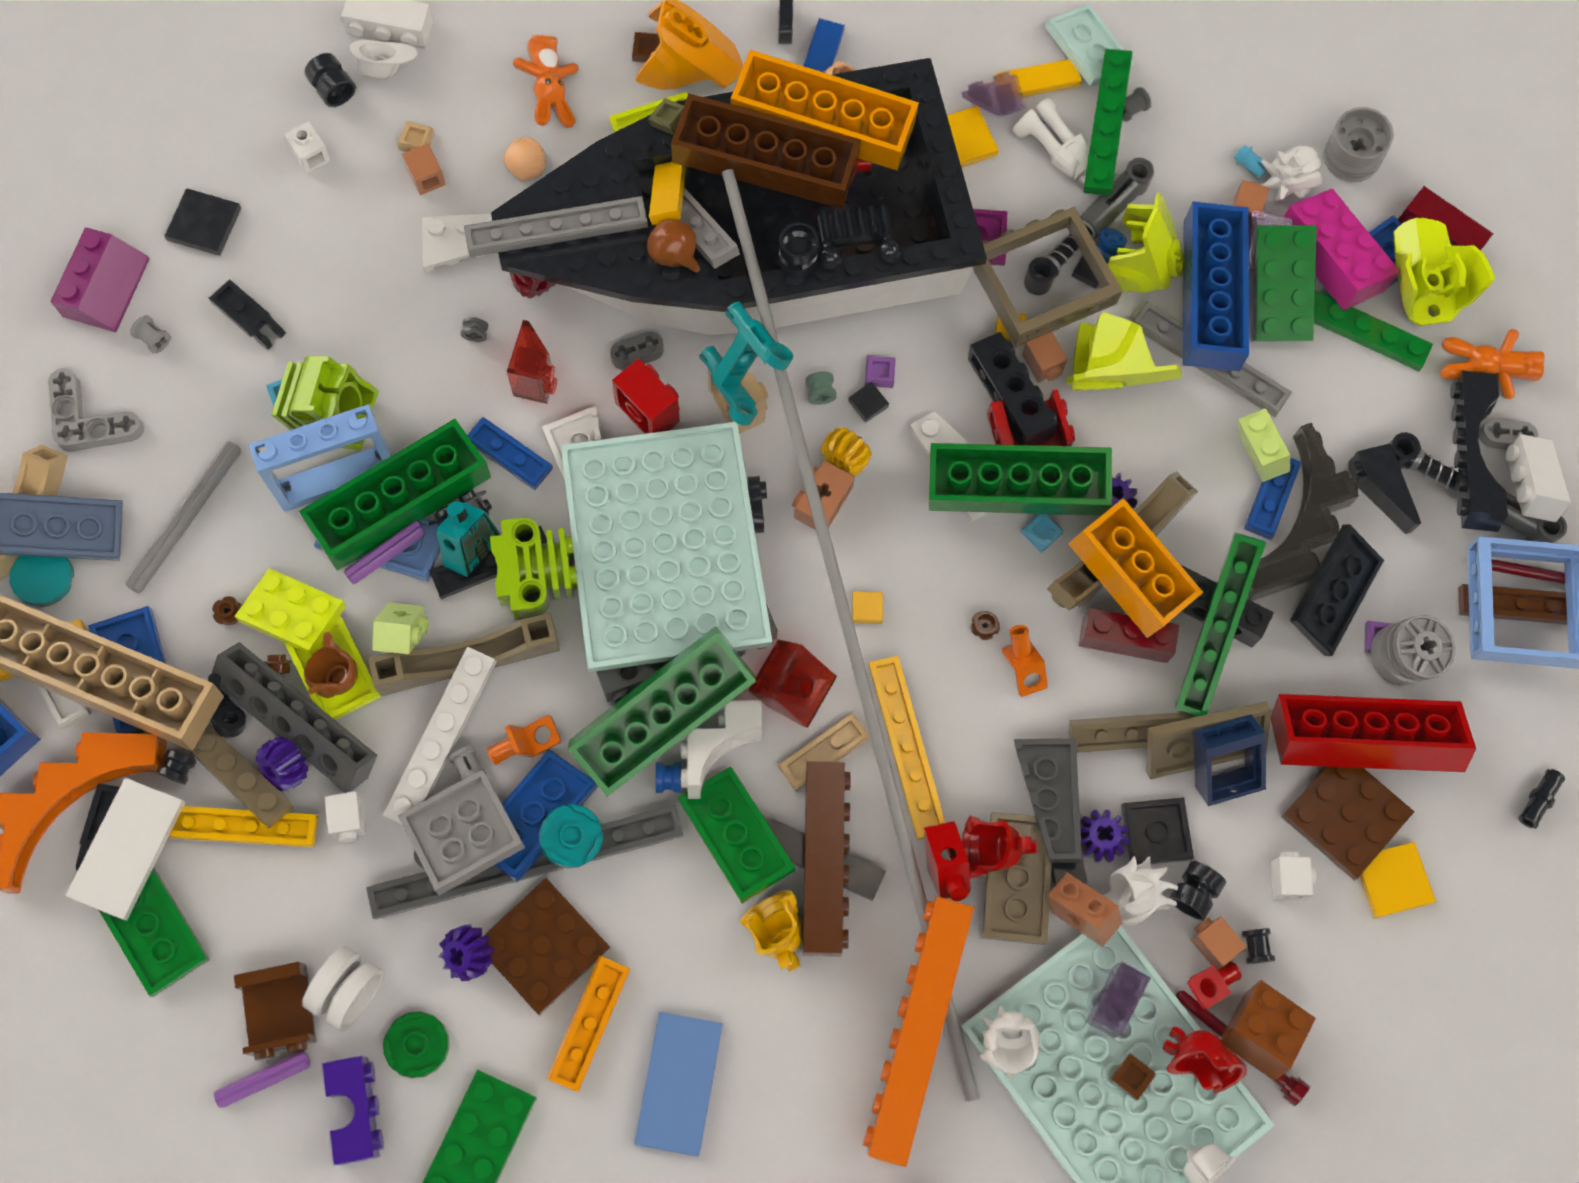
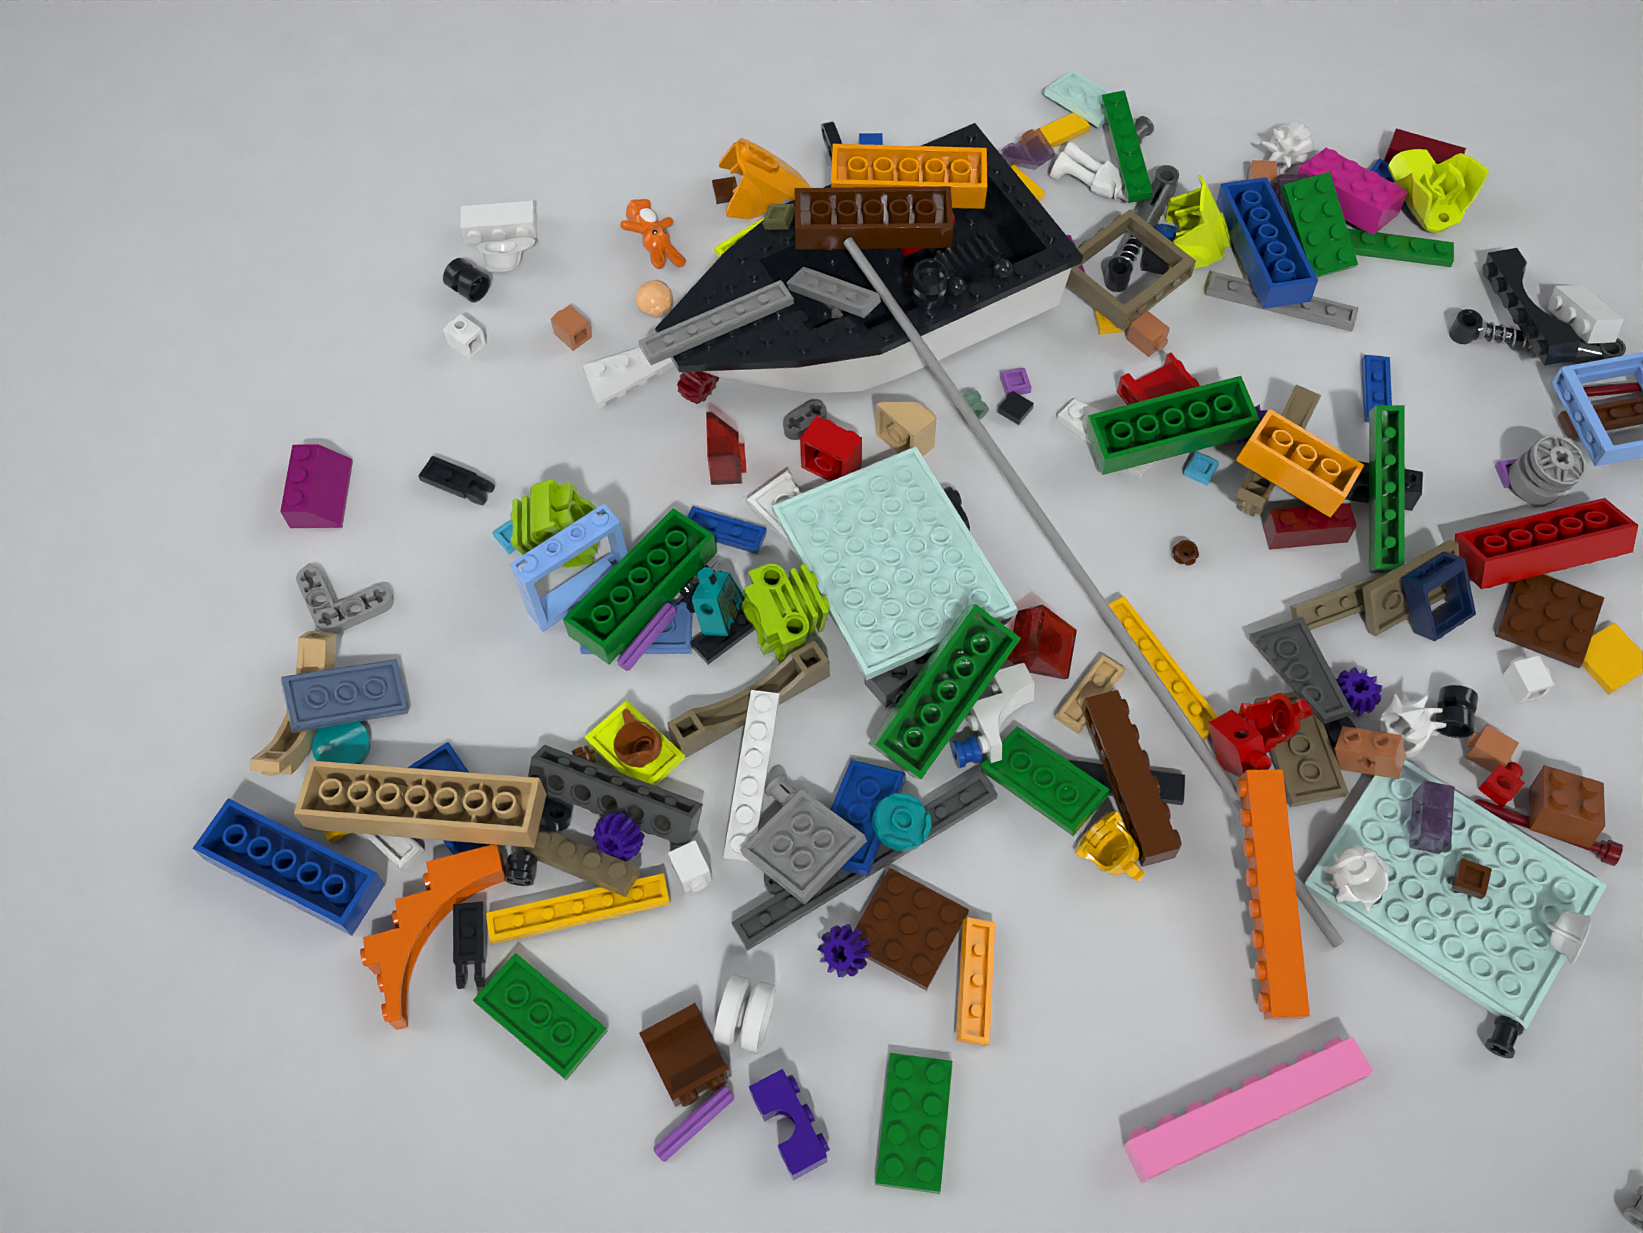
camera: 10 degrees left, 10 degrees down
(125, 849) = (499, 953): white tile -> none
(150, 334) = (375, 518): light grey bush -> none
(183, 517) = (454, 660): light grey axle -> none
(203, 222) = (391, 419): black tile -> none
(219, 607) = (524, 732): reddish brown plate -> none
(290, 611) = (580, 708): neon yellow plate -> none
(399, 628) = (685, 692): yellowish green brick -> none
(414, 135) = (552, 305): tan tile -> none
(416, 1044) = (825, 1049): green tile -> none
(474, 329) = (659, 439): dark grey bush -> none
(523, 741) = (825, 758): orange bracket -> none
(667, 192) = (799, 274): yellow tile -> none
(673, 244) = (822, 309): dark orange hair -> none
(678, 1084) = (1076, 1011): medium blue tile -> none
(730, 370) = (900, 403): teal connector -> none
(830, 481) = (1003, 498): nougat brick -> none
(846, 451) = (1017, 446): yellow gear -> none
(867, 607) = (1087, 563): yellow tile -> none
(999, 351) = (1122, 355): black brick -> none
(1025, 660) = (1232, 570): orange bracket -> none
(1114, 357) = (1209, 313): neon yellow piece -> none
(1158, 830) = (1400, 673): black tile -> none
(1205, 1058) = (1528, 843): red helmet -> none
(1250, 161) = (1250, 148): medium azure pin -> none
(1258, 946) = (1528, 745): black bush -> none
(1264, 445) = (1356, 349): yellowish green brick -> none
(1314, 527) = (1422, 400): clear smoke arch -> none
(1337, 590) = (1463, 444): black tile -> none
(1358, 144) = (1331, 112): light grey wheel -> none
(1383, 483) = (1465, 355): black slope -> none
(1488, 359) = (1525, 239): orange animal -> none
(1508, 432) = (1542, 291): light grey beam -> none

